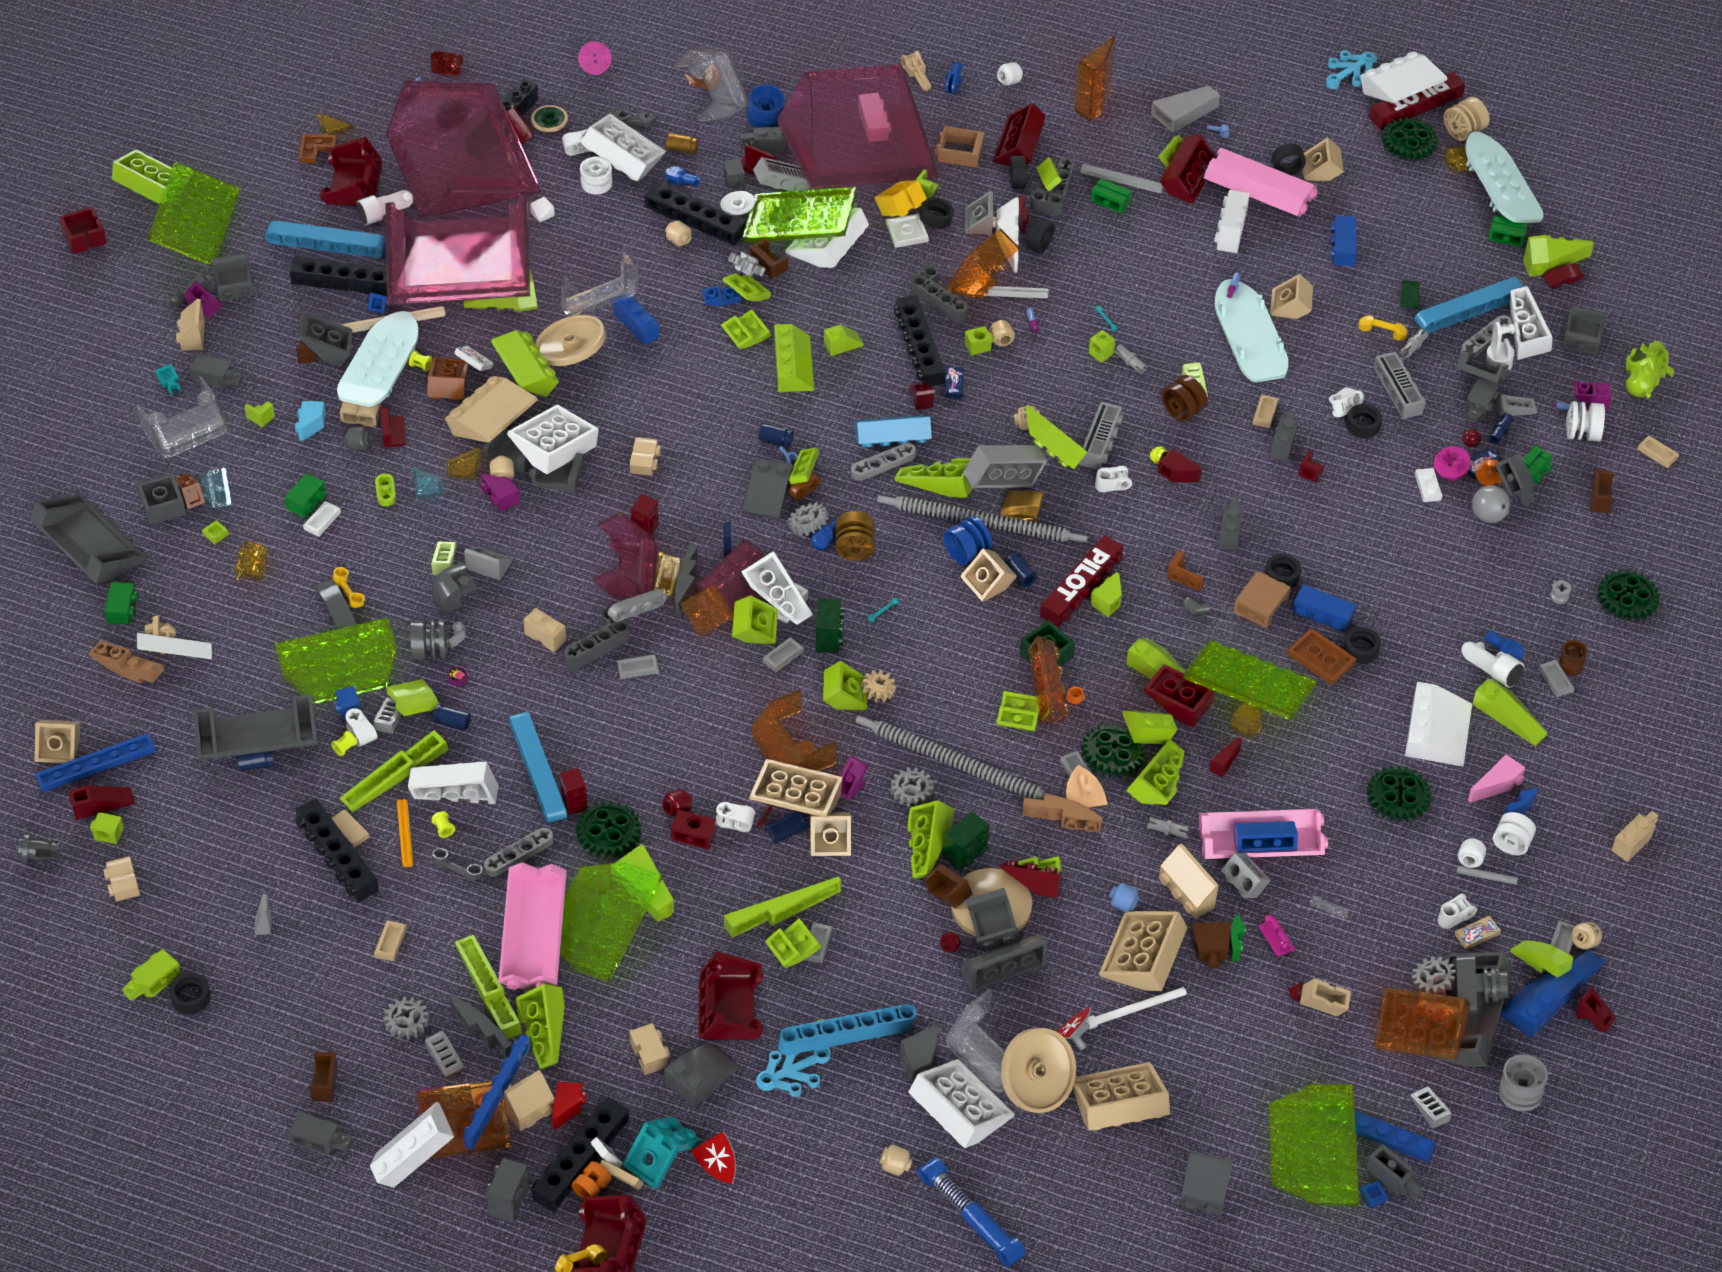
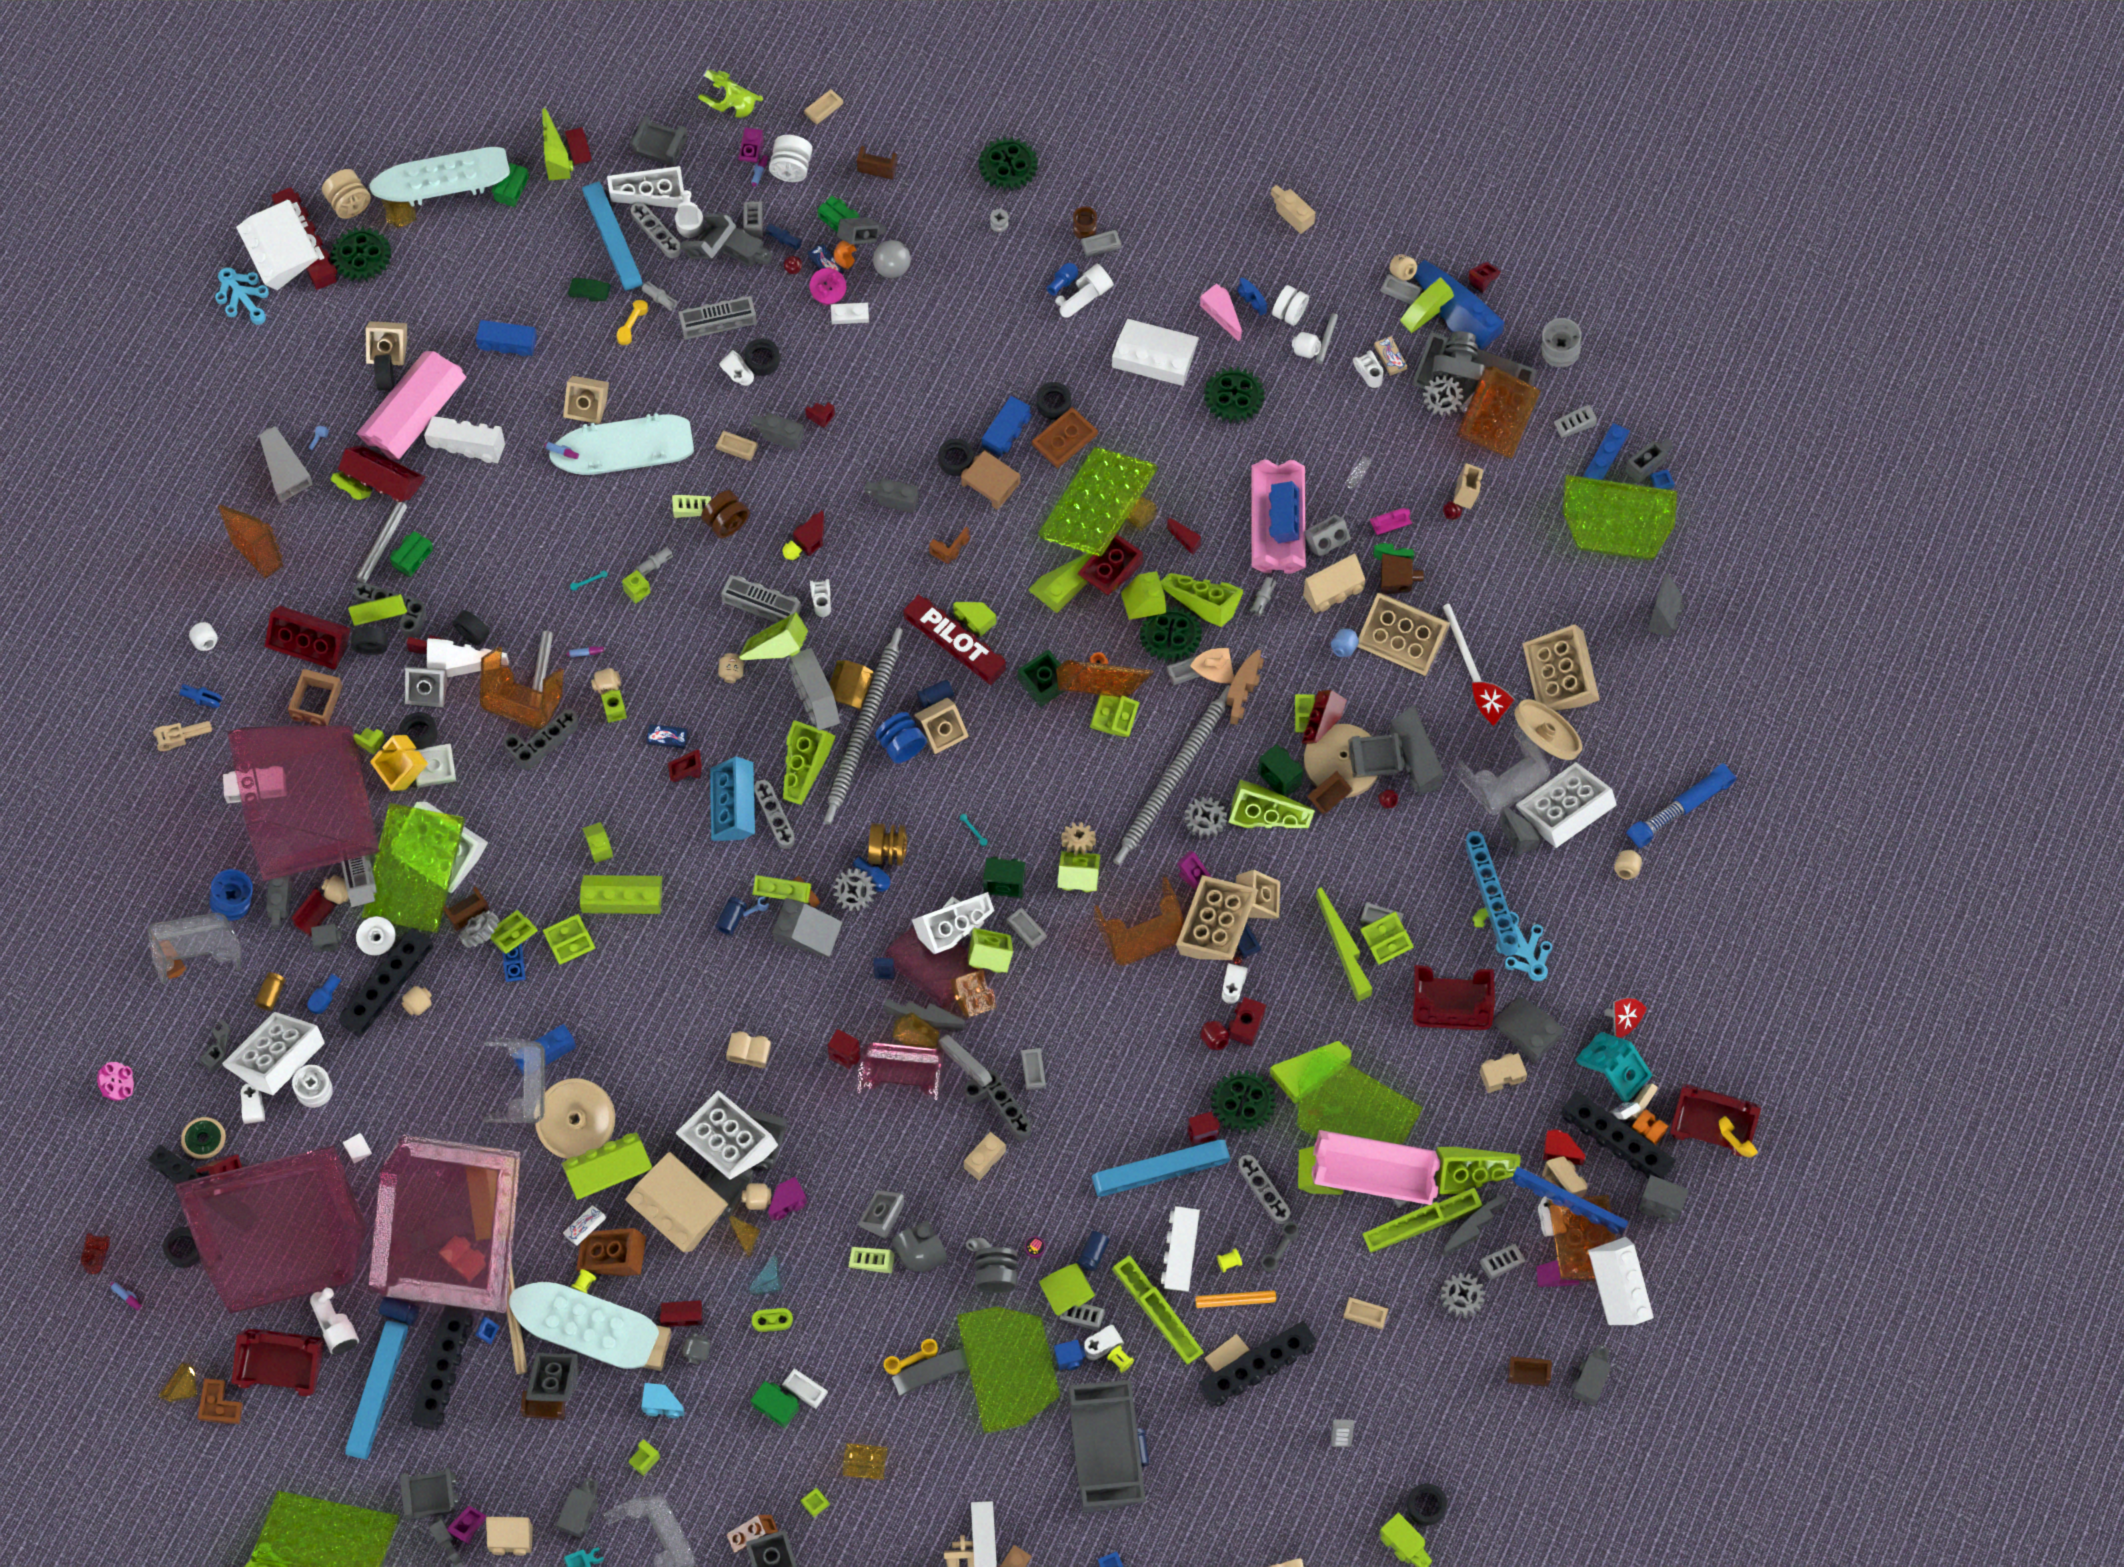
camera: 85 degrees left, 15 degrees up
(215, 488) = (759, 1500): clear light blue slope -> none
(919, 340) = (599, 758): black brick -> none
(1194, 607) = (994, 542): dark grey arm -> none
(1508, 710) = (1136, 290): lime wedge -> none

